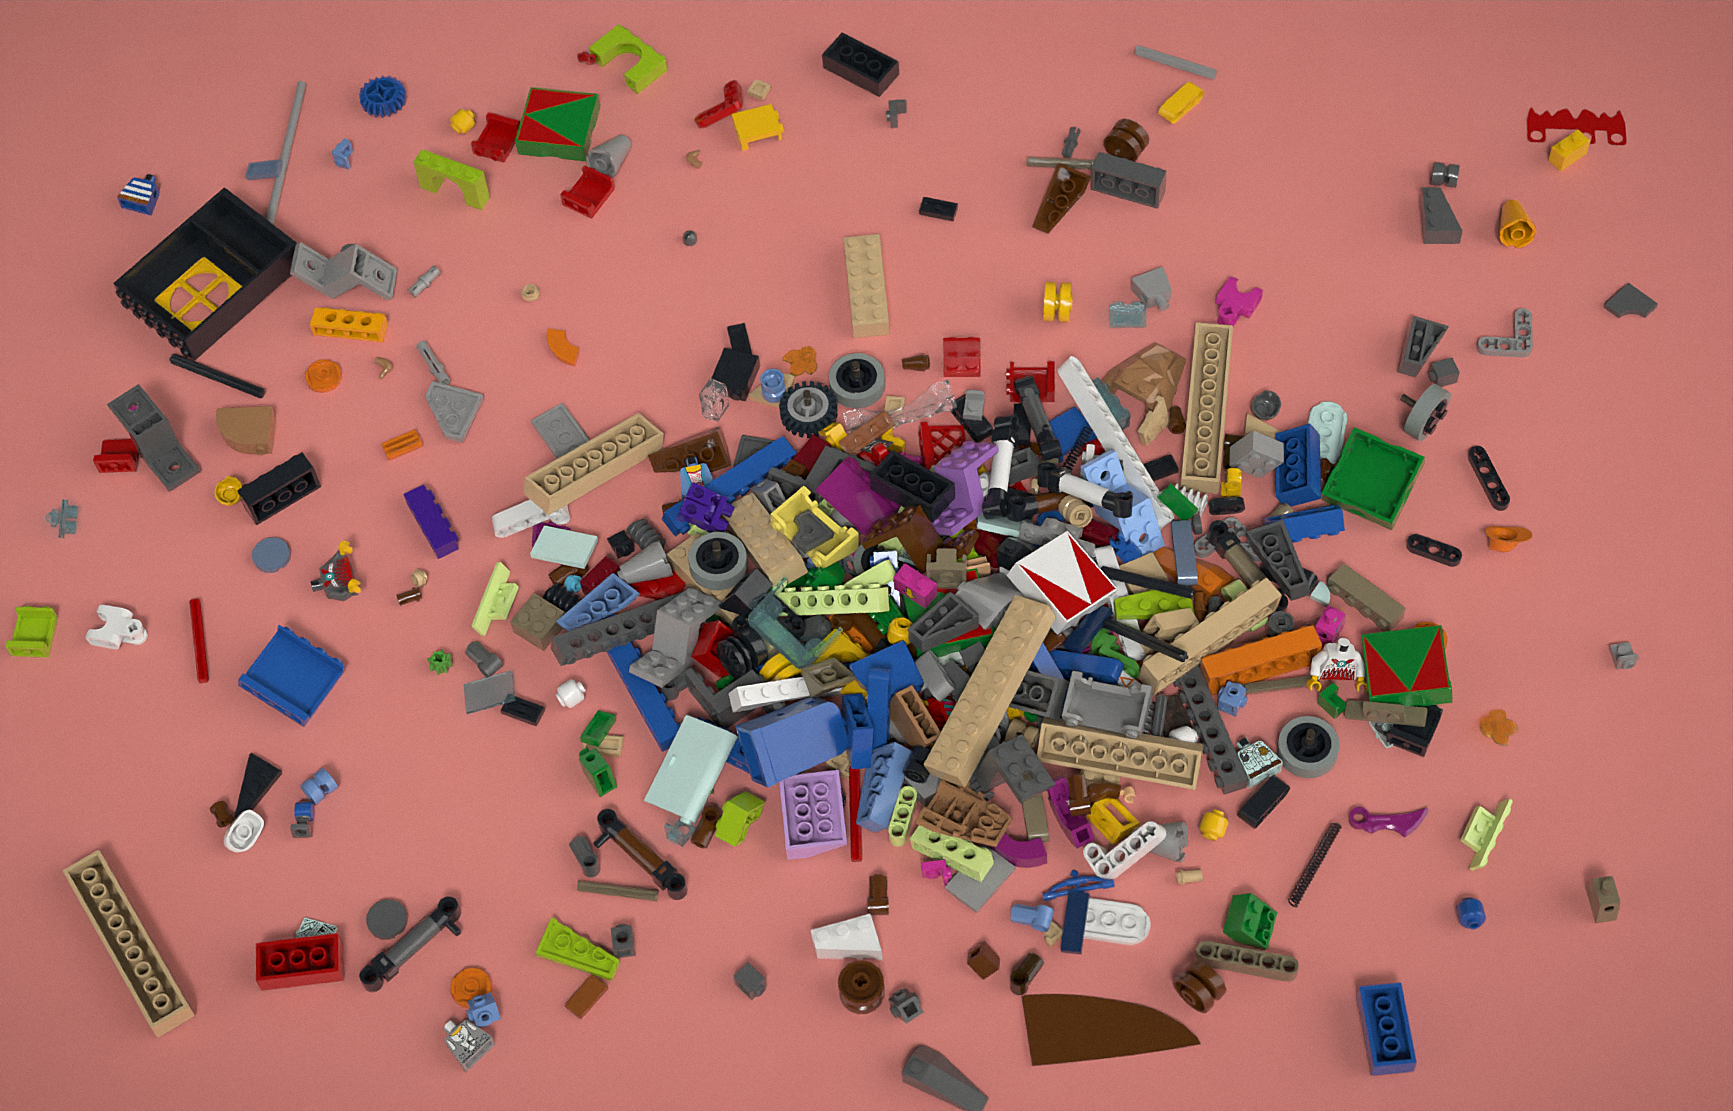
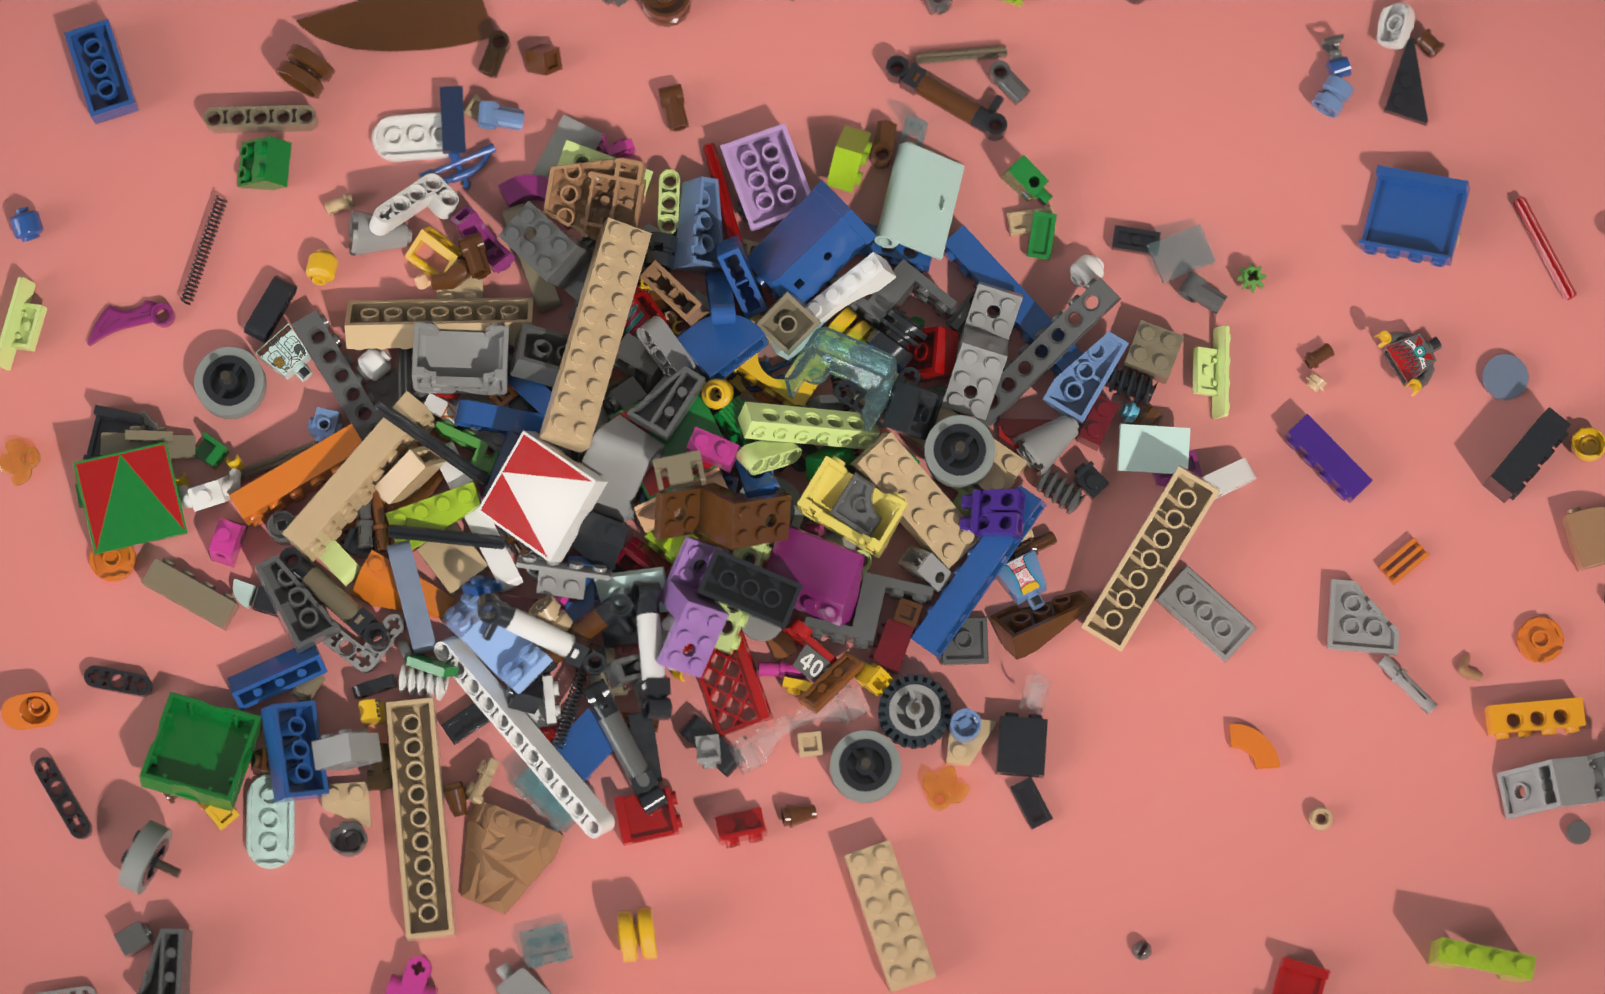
camera: 160 degrees right, 20 degrees up
(424, 281) = (1463, 805): light grey pin -> none
(847, 939) = (693, 47): white wedge -> none
(1030, 733) = (558, 324): tan wheel -> none

